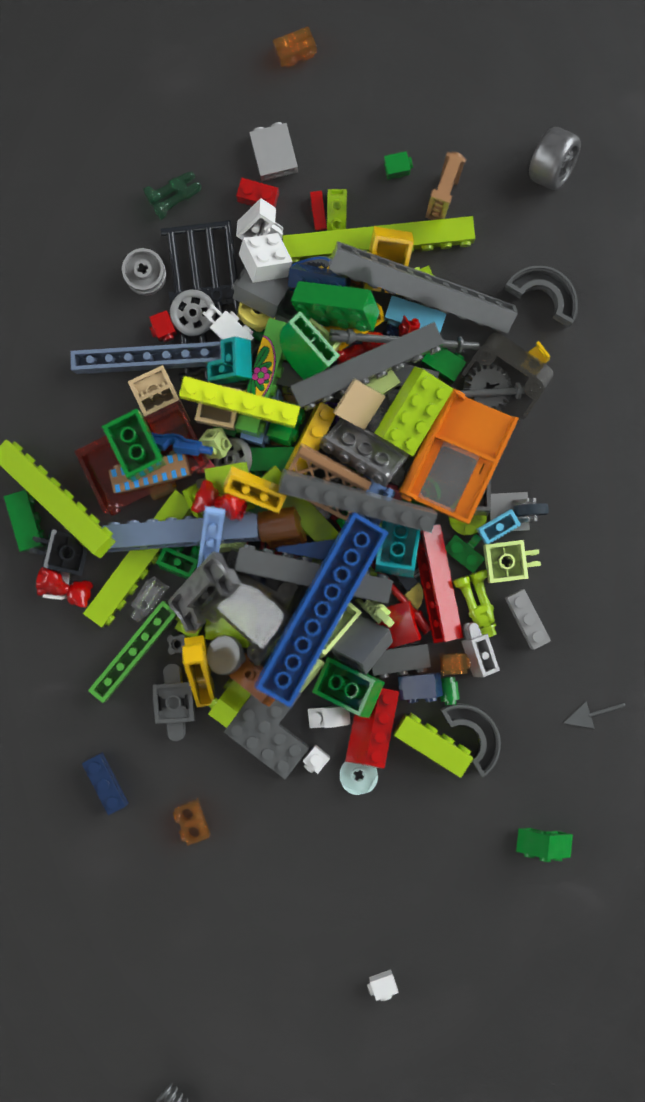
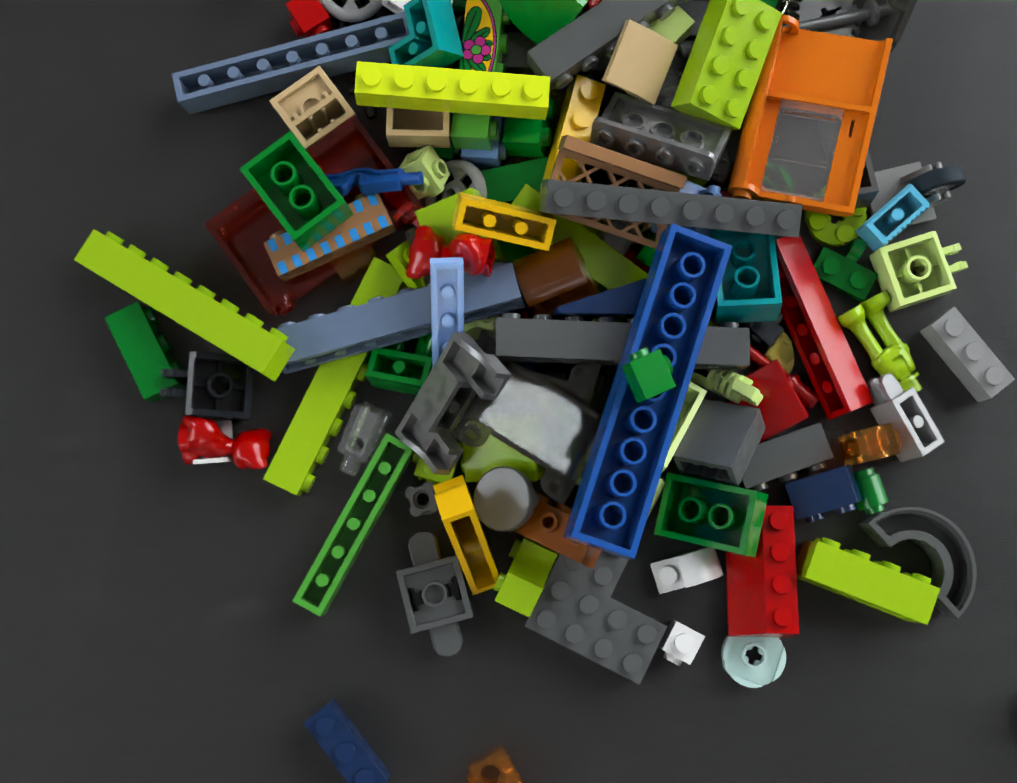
camera: 15 degrees left, 5 degrees down
(320, 602) = (648, 374): none -> green brick

